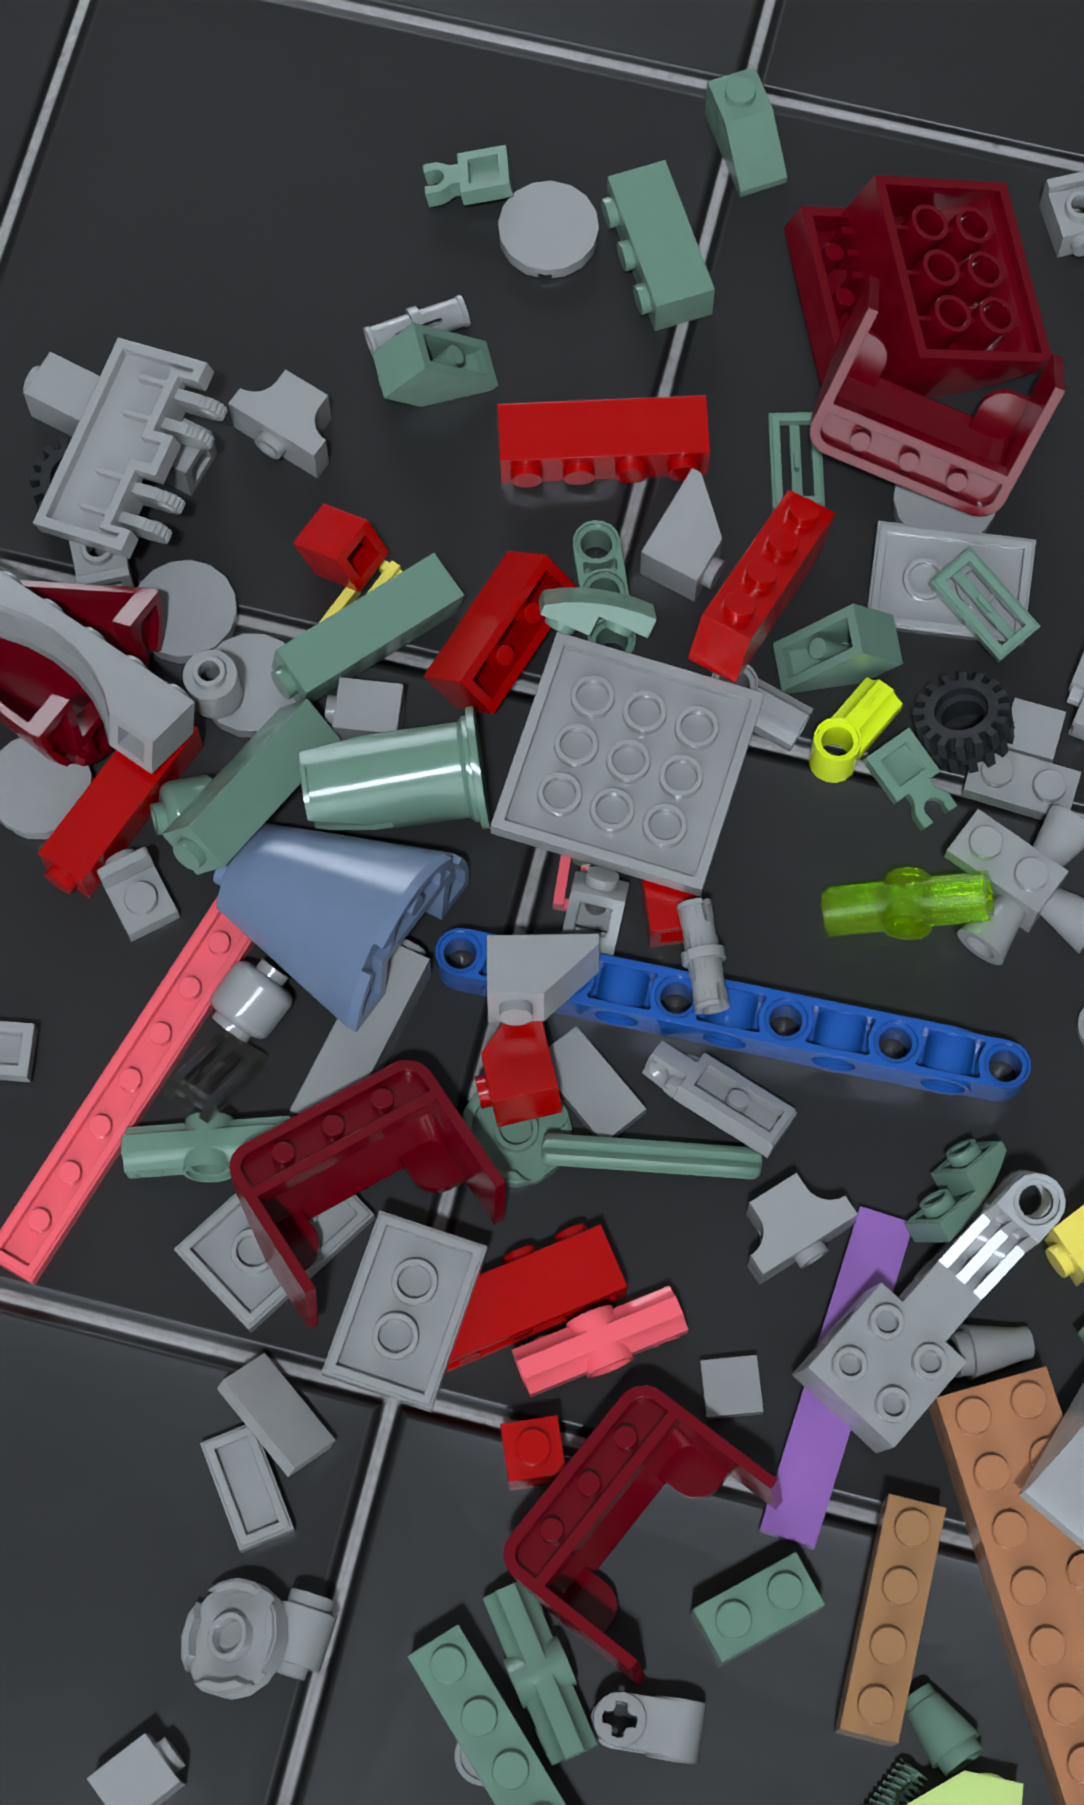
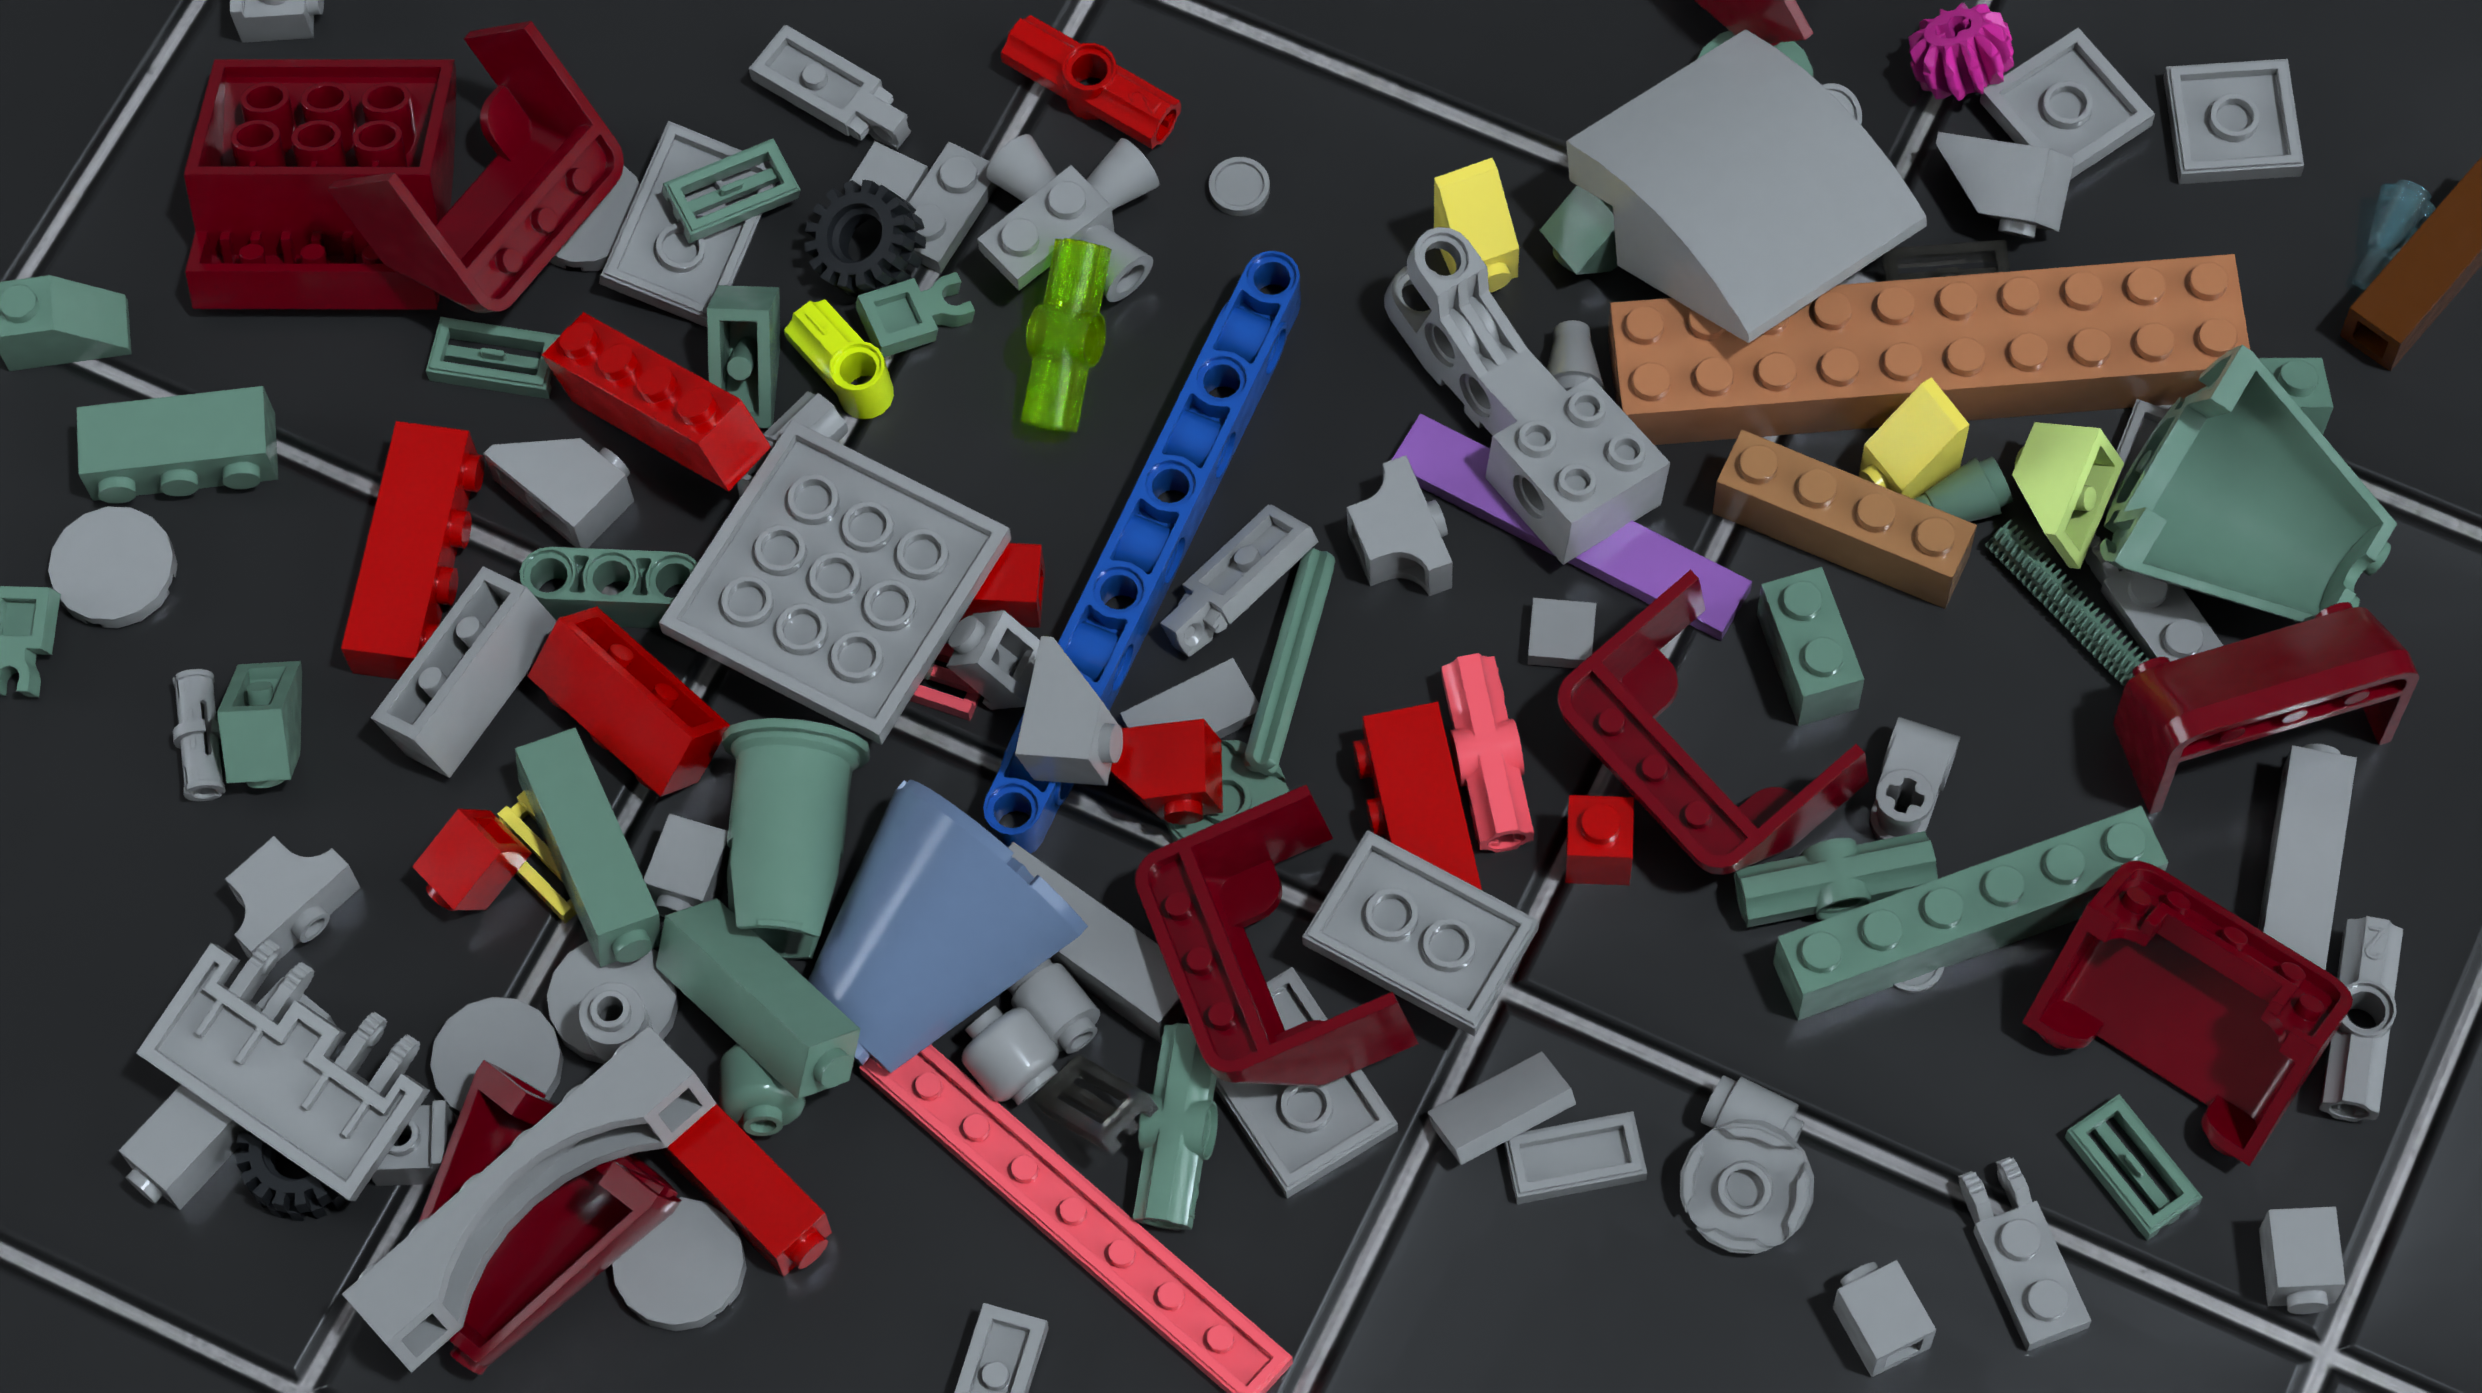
camera: 75 degrees left, 5 degrees down
(137, 892) = (845, 1168): light grey bracket -> none
(299, 1029) = (1057, 1005): none -> light grey brick
(499, 502) = (465, 672): none -> light grey brick
(580, 607) = (641, 579): sand green slope -> none
(703, 956) = (1083, 547): light grey pin -> none
(963, 1187) = (1394, 352): sand green slope -> none
(966, 1671) = (1916, 443): none -> light yellow slope

